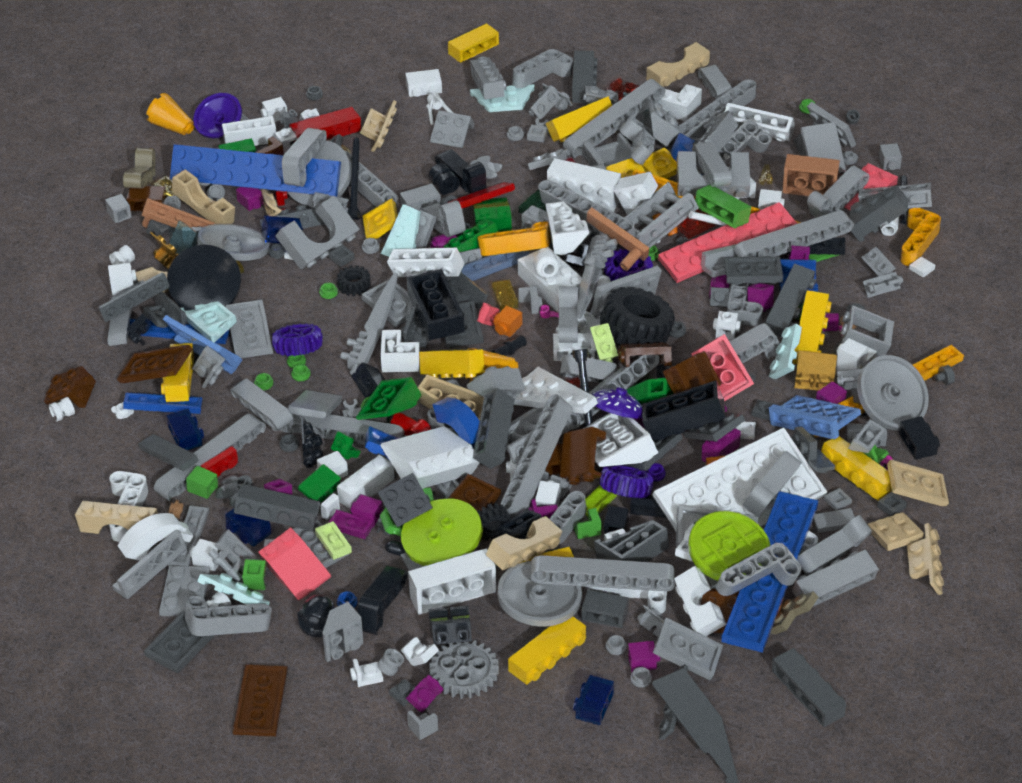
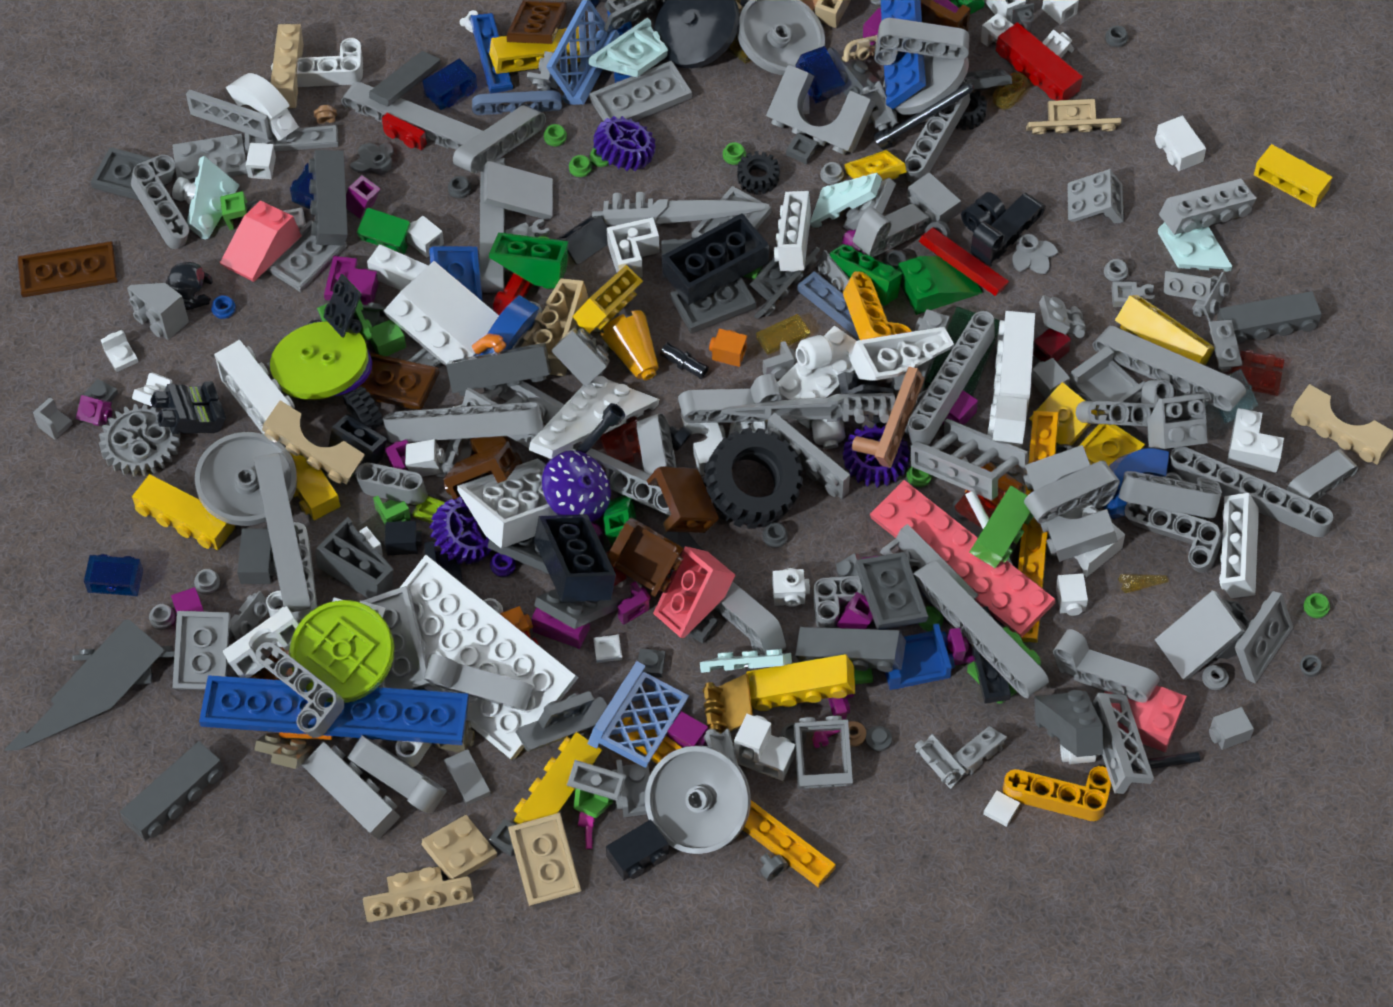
camera: 75 degrees right, 15 degrees up
(202, 482) = (368, 124): bright green panel -> none
(221, 396) = (543, 101): none -> sand blue beam
(235, 551) = (263, 182): light grey plate -> none
(310, 444) = (451, 202): black hinge -> none
(330, 506) = (359, 250): white tile -> none
(333, 540) = (301, 266): yellowish green plate -> none
(343, 444) = (454, 235): green bracket -> none
(379, 597) = (223, 330): black beam -> none
(390, 662) = (137, 365): light grey wheel -> none
(435, 102) = (1146, 167): white plant -> none
(471, 424) = (489, 341): none -> orange arm
(487, 314) = (729, 320): coral bracket -> none
(540, 66) = (1261, 260): light grey beam -> none
(604, 342) = (692, 448): yellowish green hinge -> none
(809, 174) = (1134, 625): nougat brick -> none
(837, 499) = (506, 775): light grey tile -> none

